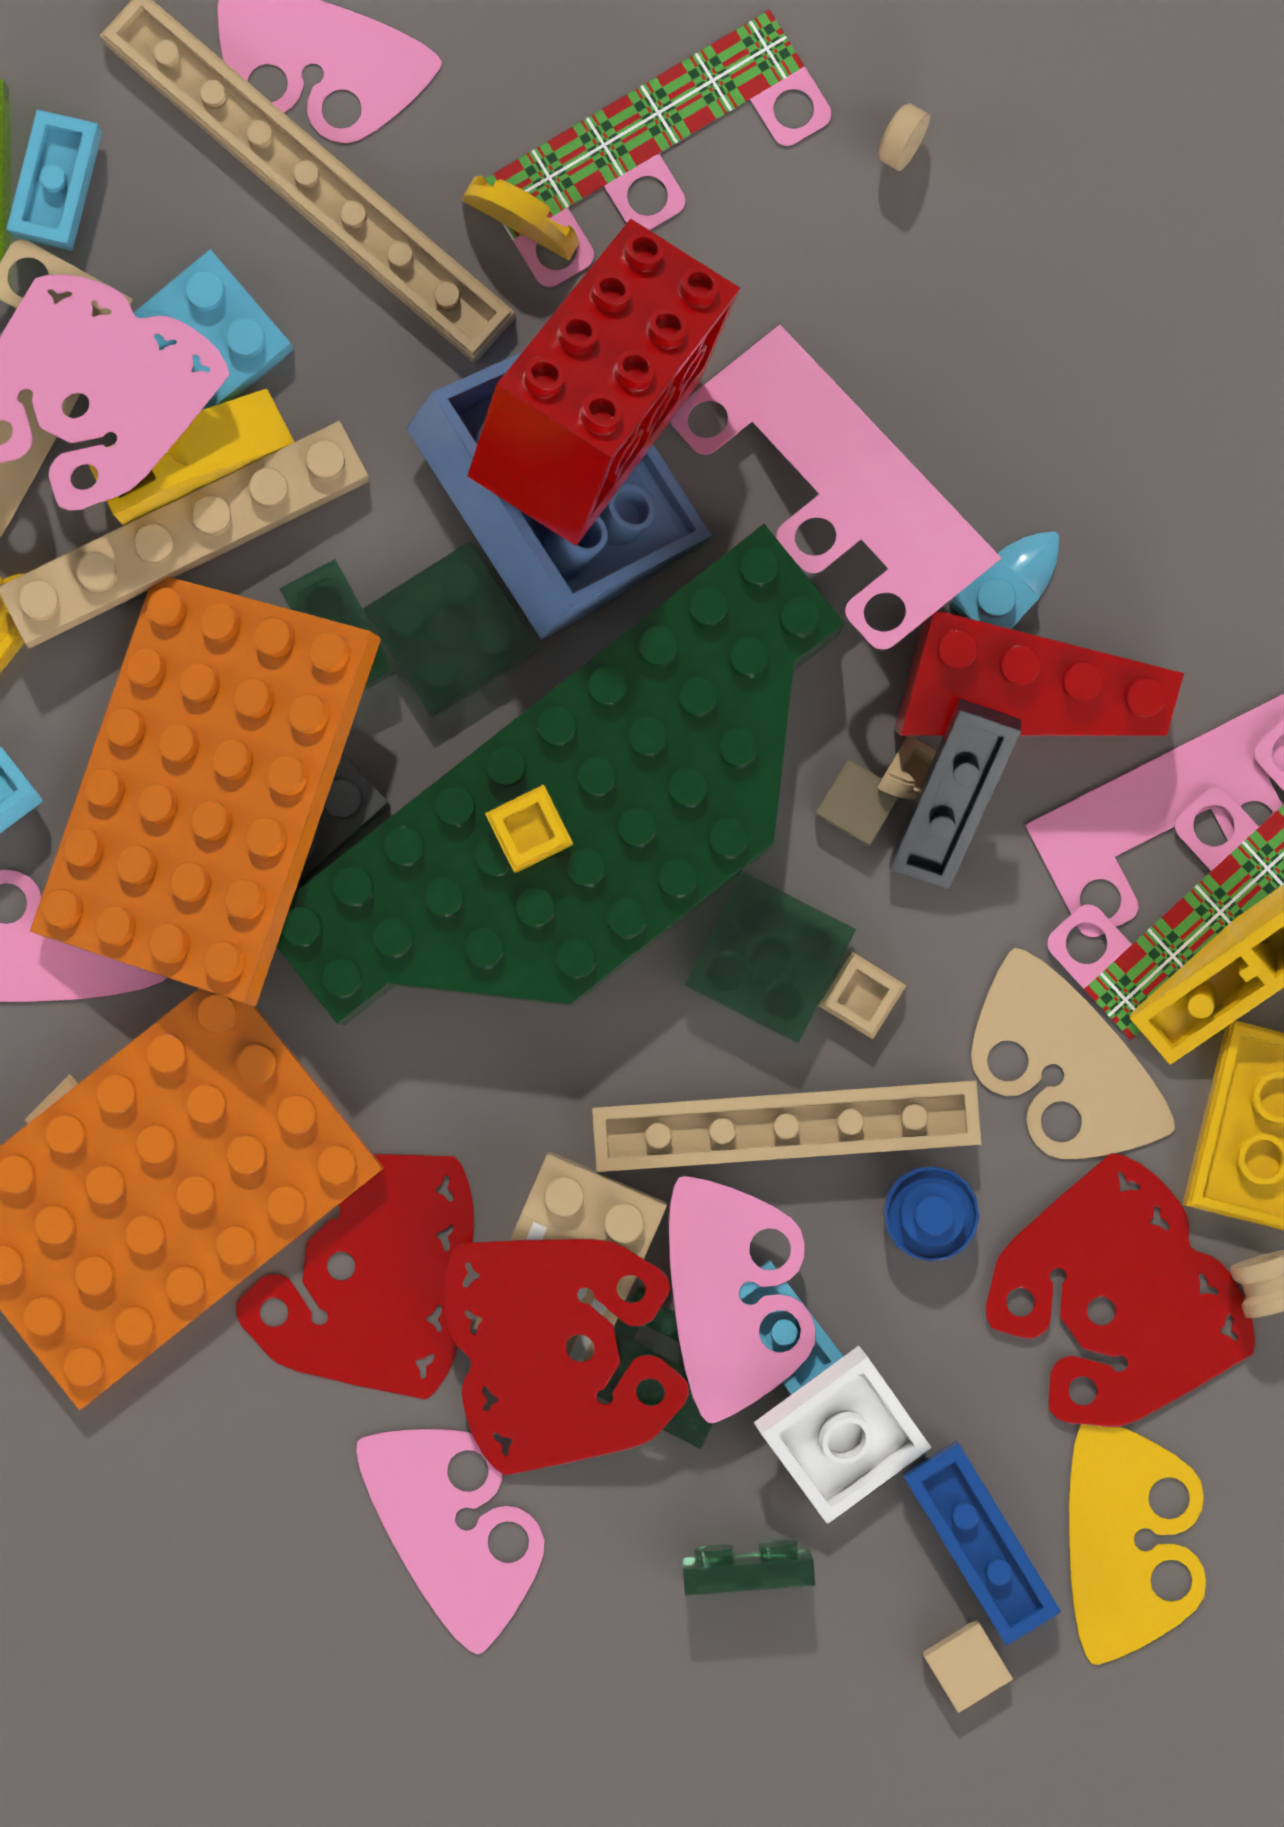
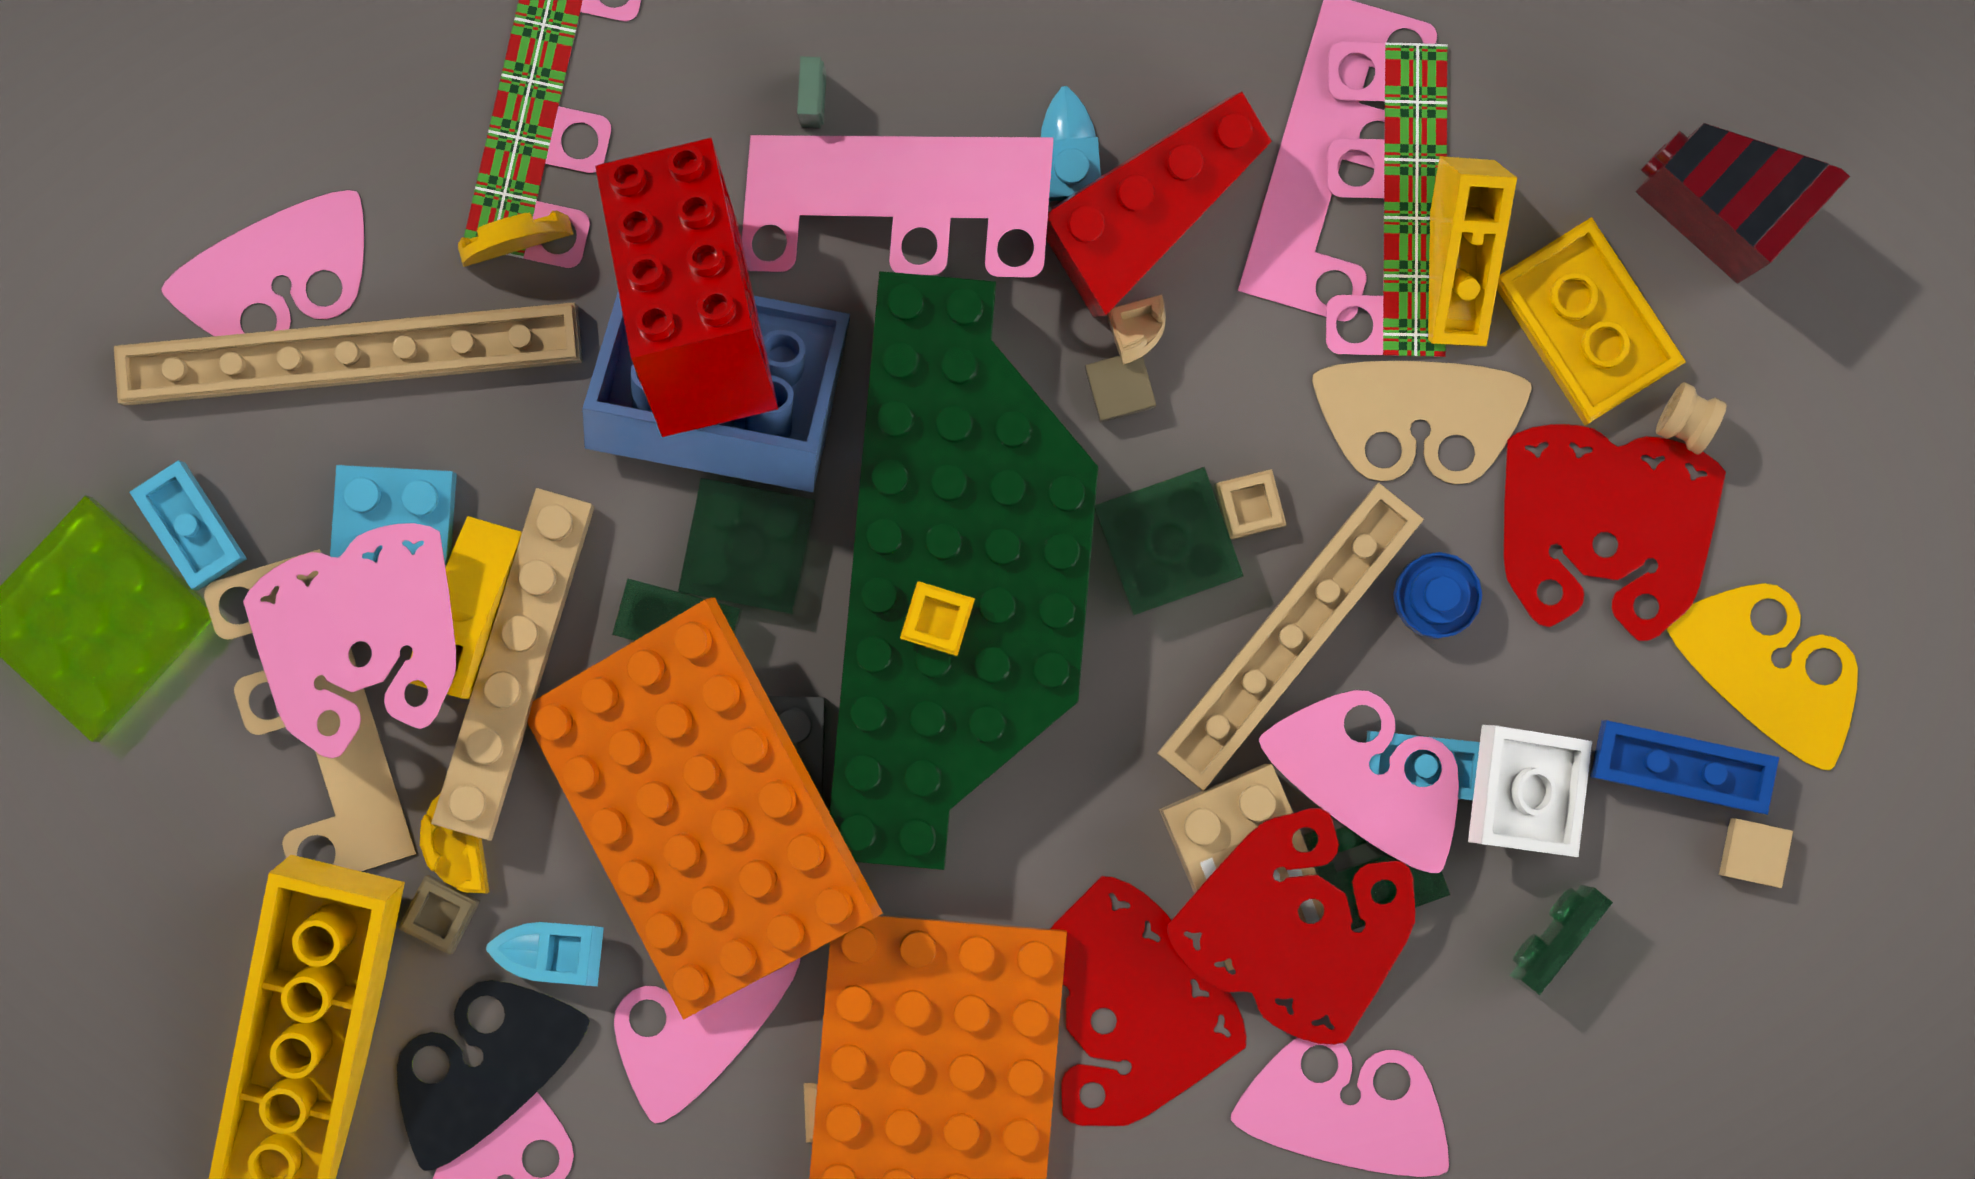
camera: 50 degrees left, 0 degrees up
(858, 338) = (811, 92): none -> sand green tile
(955, 793) = (1178, 316): plate -> none

